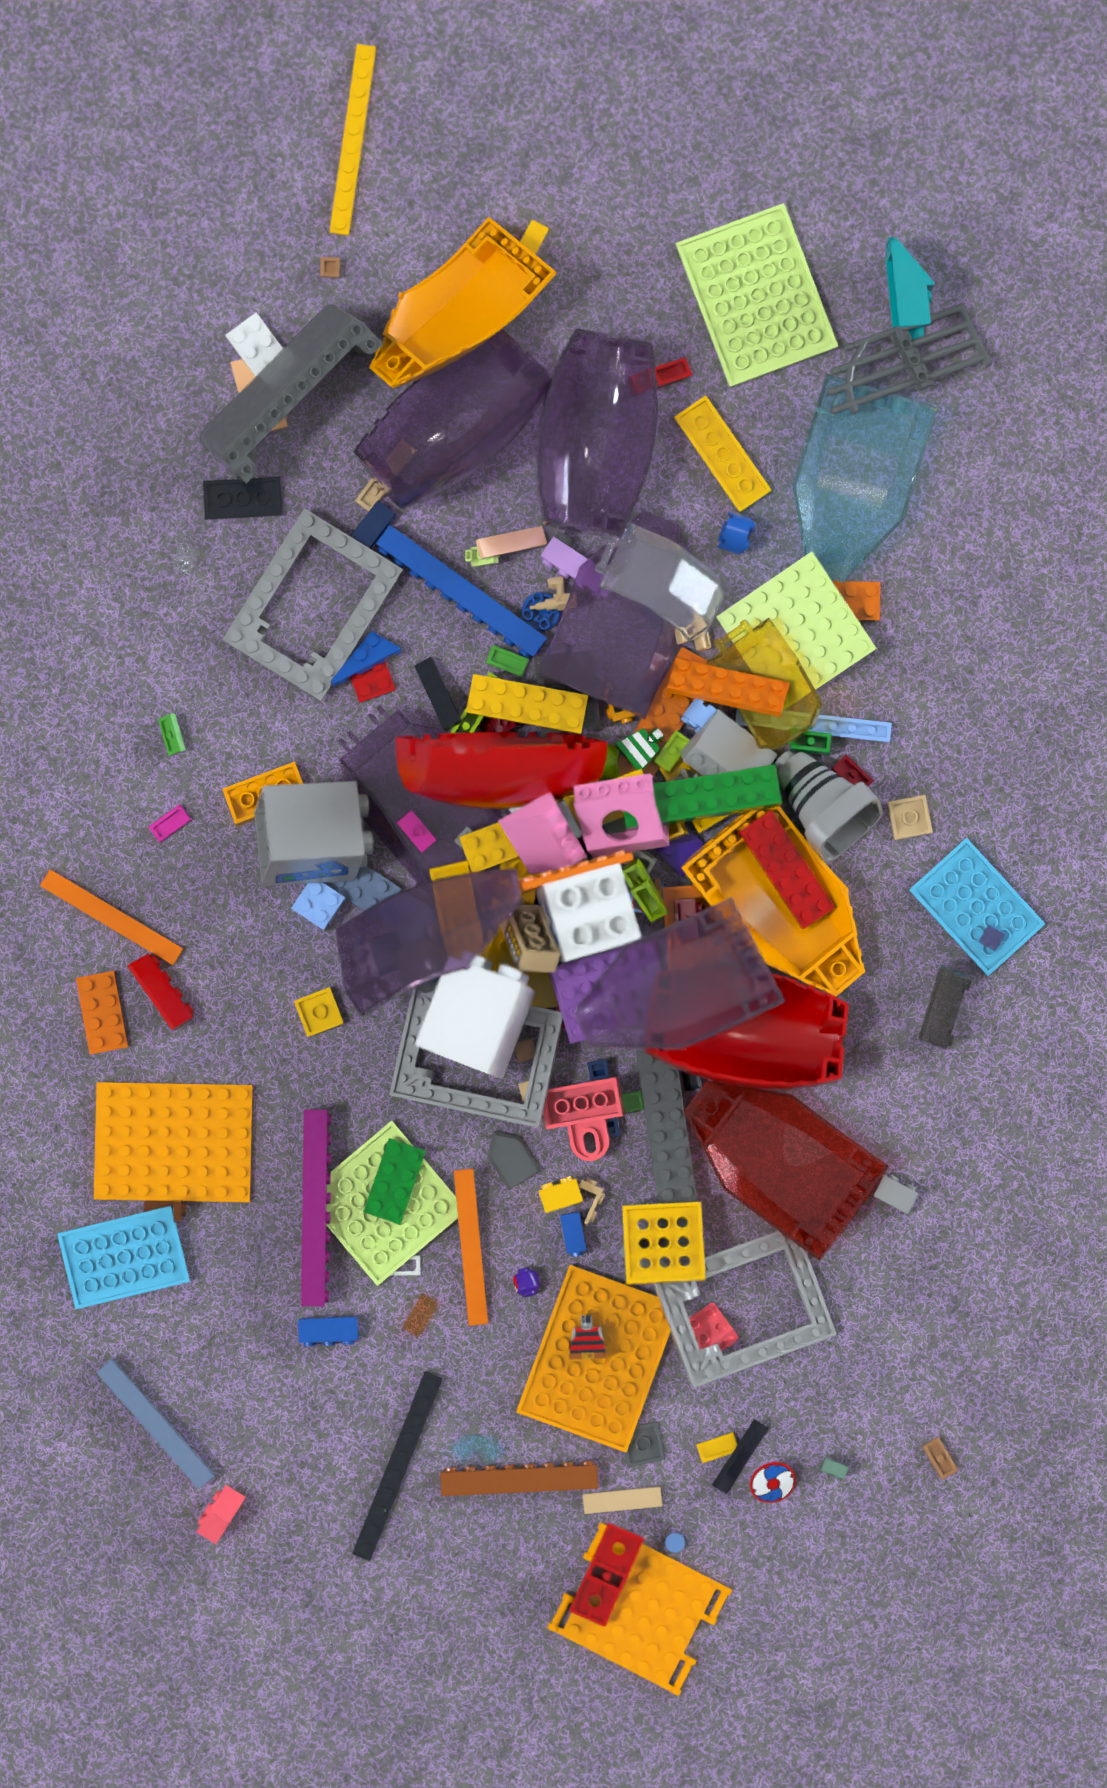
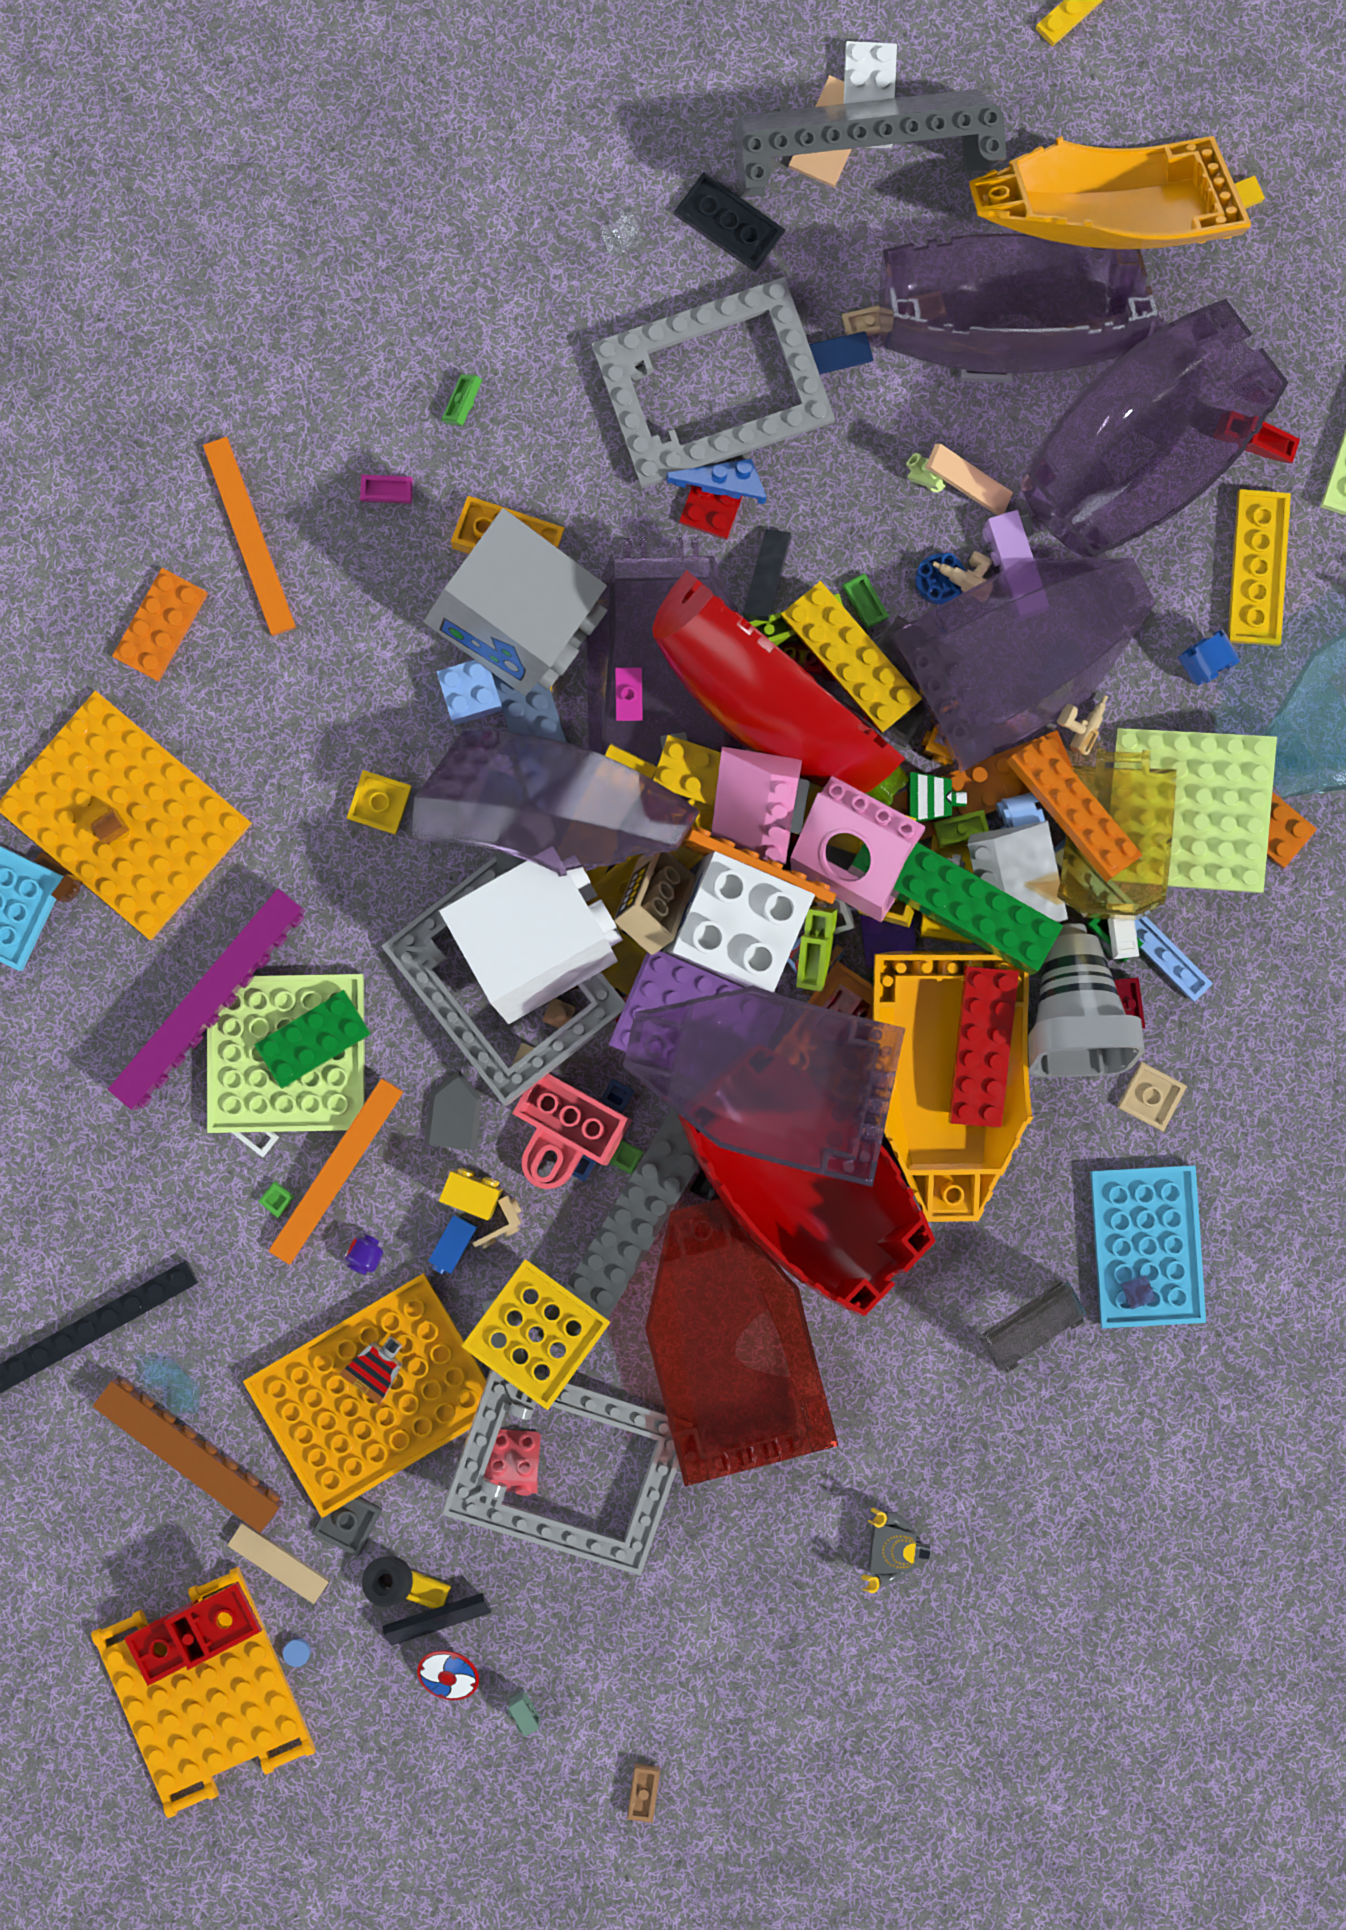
camera: 35 degrees right, 0 degrees up
(160, 991) = (234, 649): red slope -> none
(173, 1154) = (109, 826): none -> dark orange brick
(328, 1330) = (119, 1137): blue brick -> none
(329, 267) = (1008, 60): medium nougat plate -> none
(420, 1315) = (228, 1199): clear orange tile -> none
(448, 1292) = (276, 1199): none -> bright green tile
(460, 591) = (875, 492): blue brick -> none
(663, 579) = (1099, 639): clear windscreen -> none
(704, 1457) = (401, 1578): none -> black tyre
(817, 741) = (1123, 938): none -> white tile
(895, 1194) = (821, 1478): light grey brick -> none
(969, 1201) = (891, 1550): none -> dark grey torso

